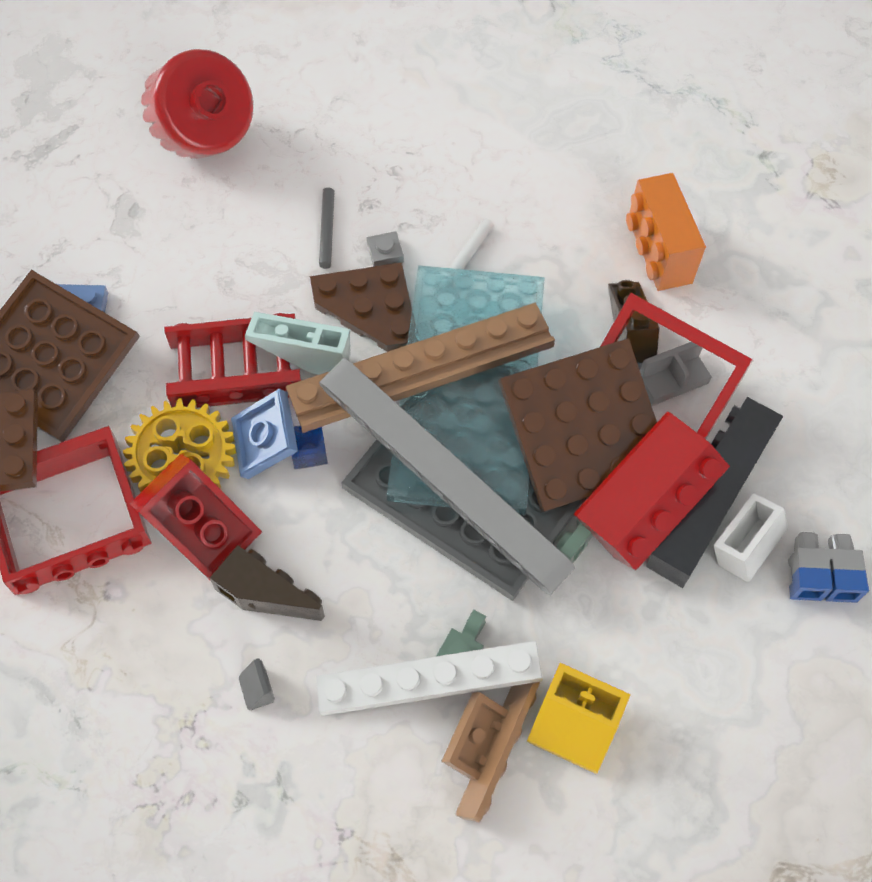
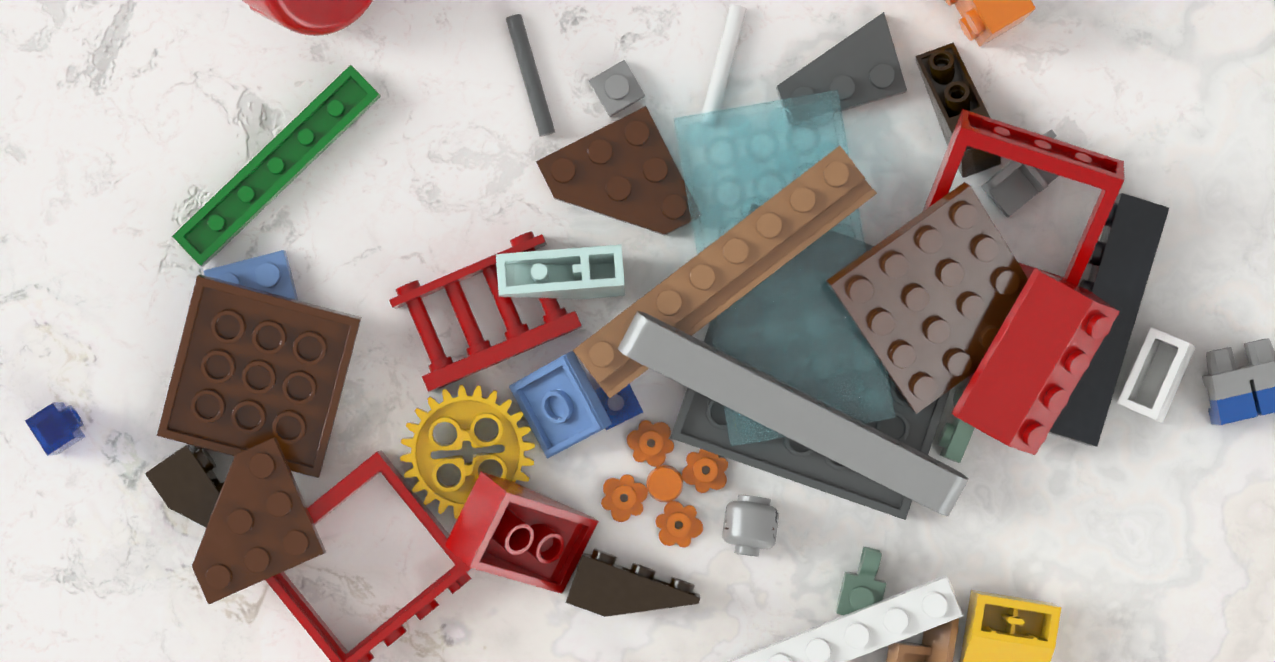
camera: 15 degrees left, 25 degrees up
(124, 234) = (276, 166): none -> green plate
(325, 522) = (664, 484): none -> orange plant
(384, 566) = (750, 524): none -> light grey head
(567, 279) = (859, 67): none -> dark grey wing

